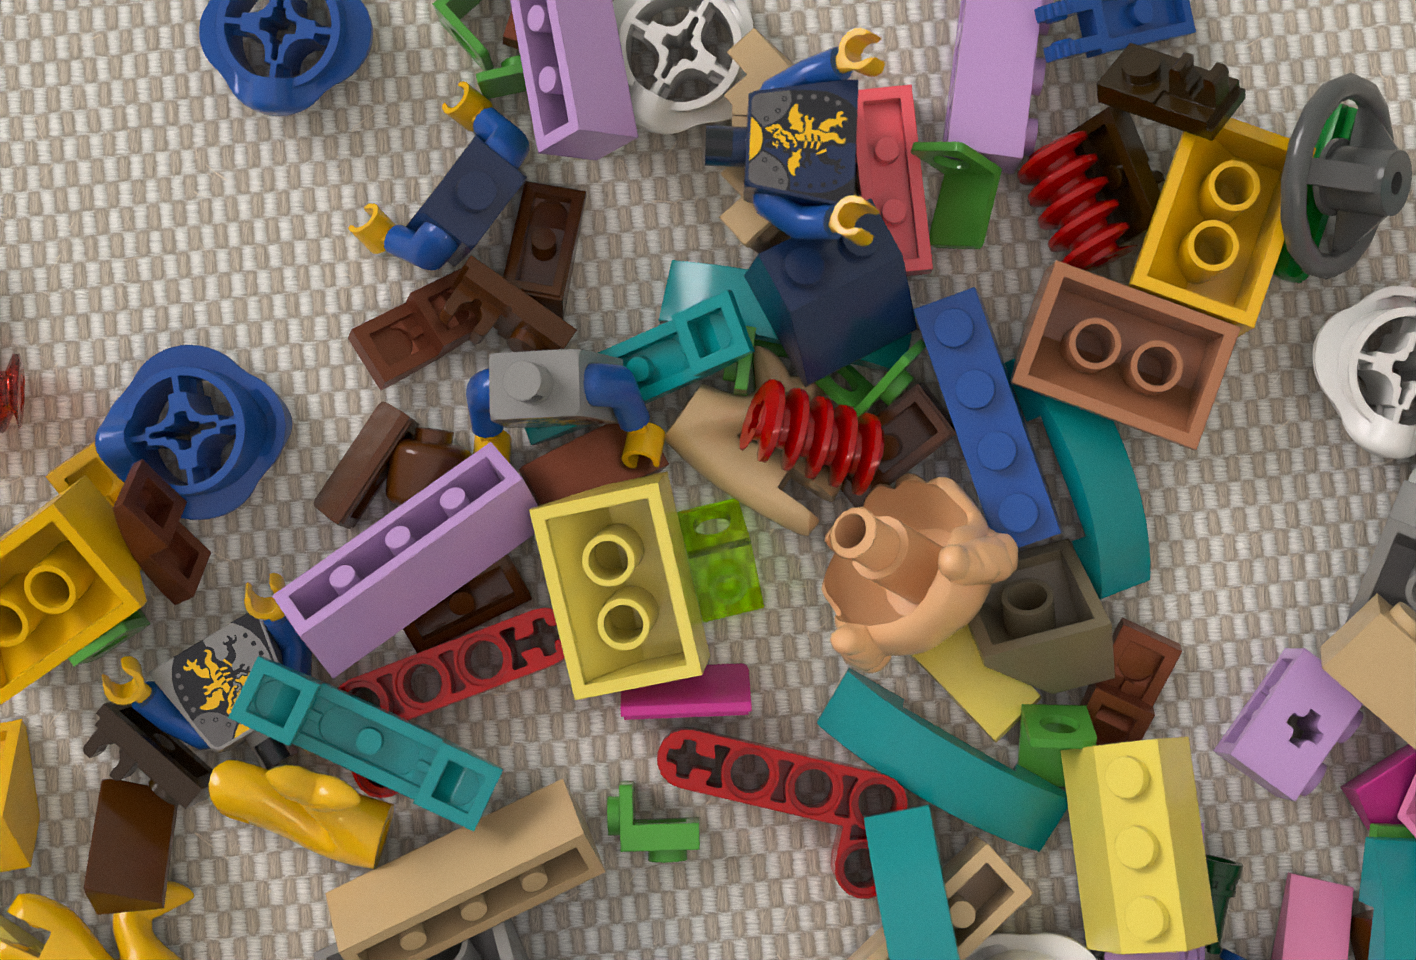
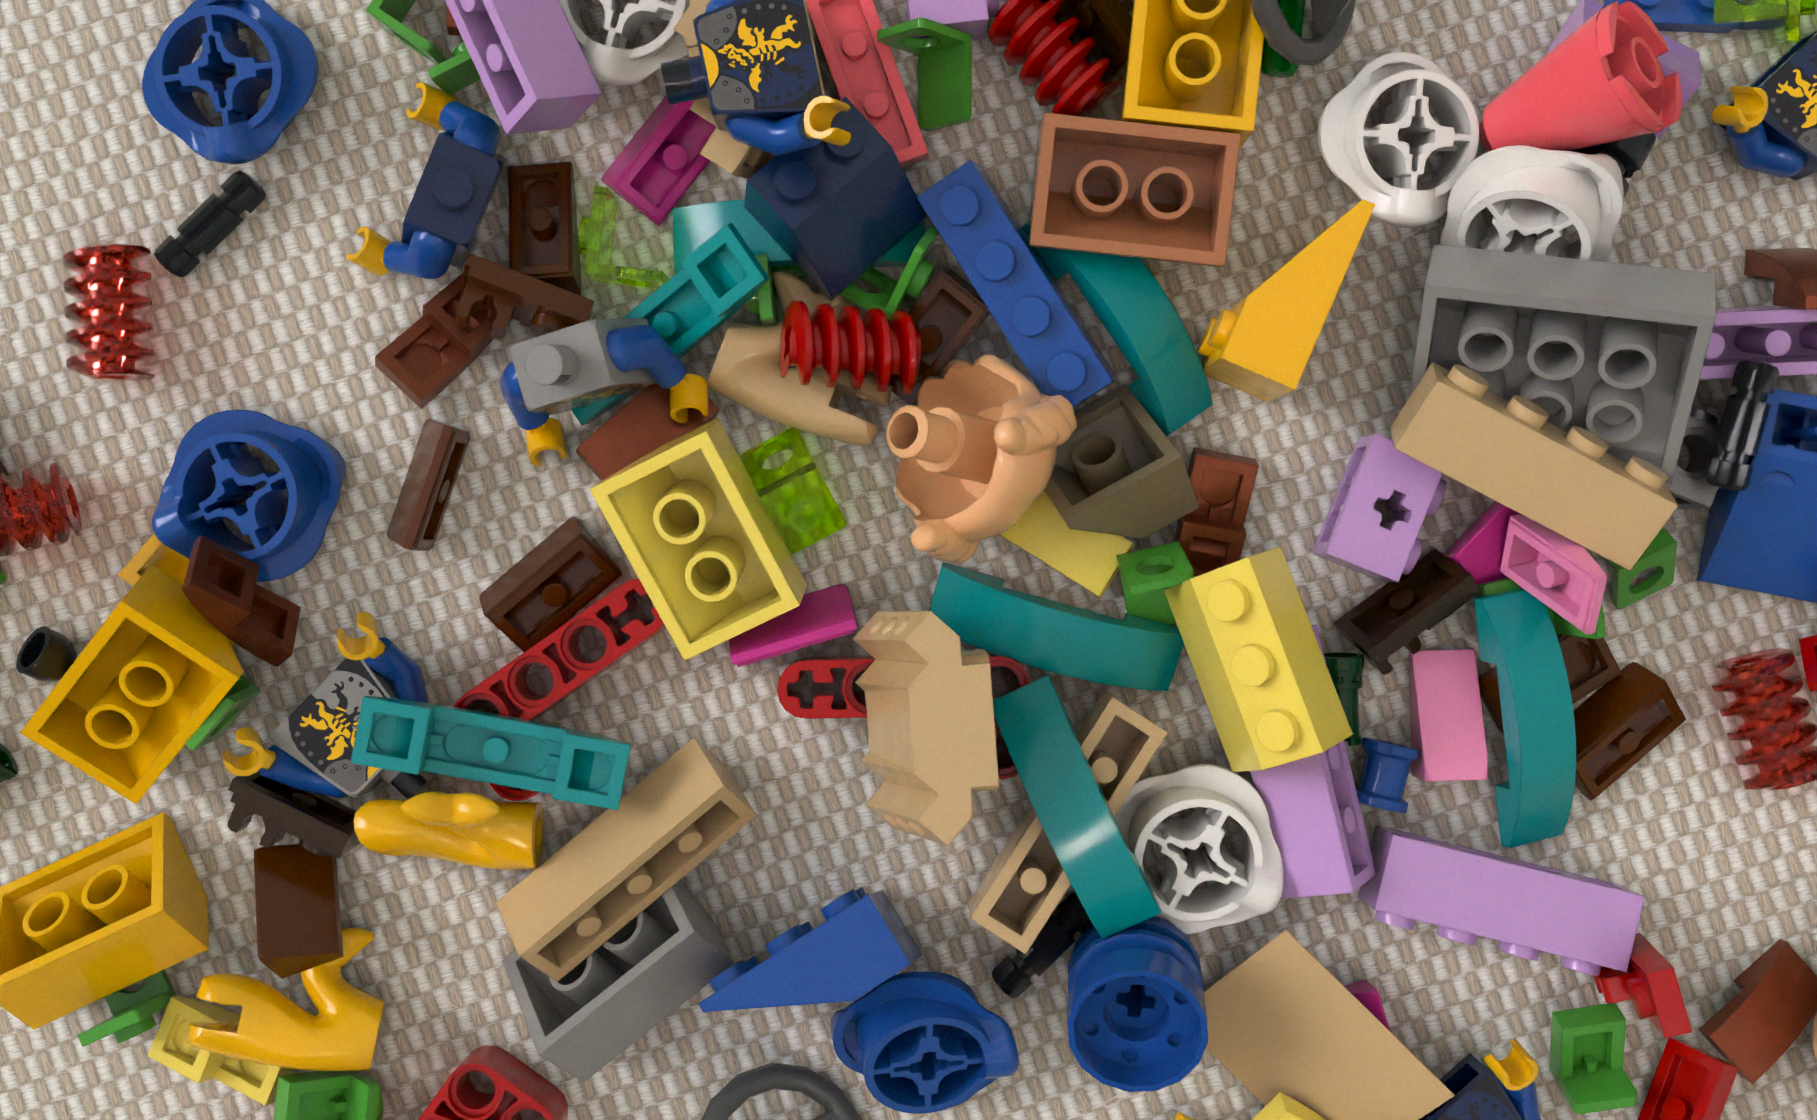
camera: 10 degrees left, 5 degrees up
(107, 223) = (107, 311): none -> clear red piece
(226, 164) = (210, 224): none -> black axle
(409, 560) = (487, 567): lavender brick -> none
(421, 462) = (489, 479): reddish brown head -> none
(592, 272) = (596, 242): none -> clear neon green bracket
(662, 837) = (805, 769): bright green bracket -> none
(675, 209) = (661, 160): none -> dark pink slope
(800, 823) = (926, 723): none -> tan slope
(1230, 522) = (1272, 330): none -> yellow slope
(1295, 830) = (1406, 609): none -> dark brown plate

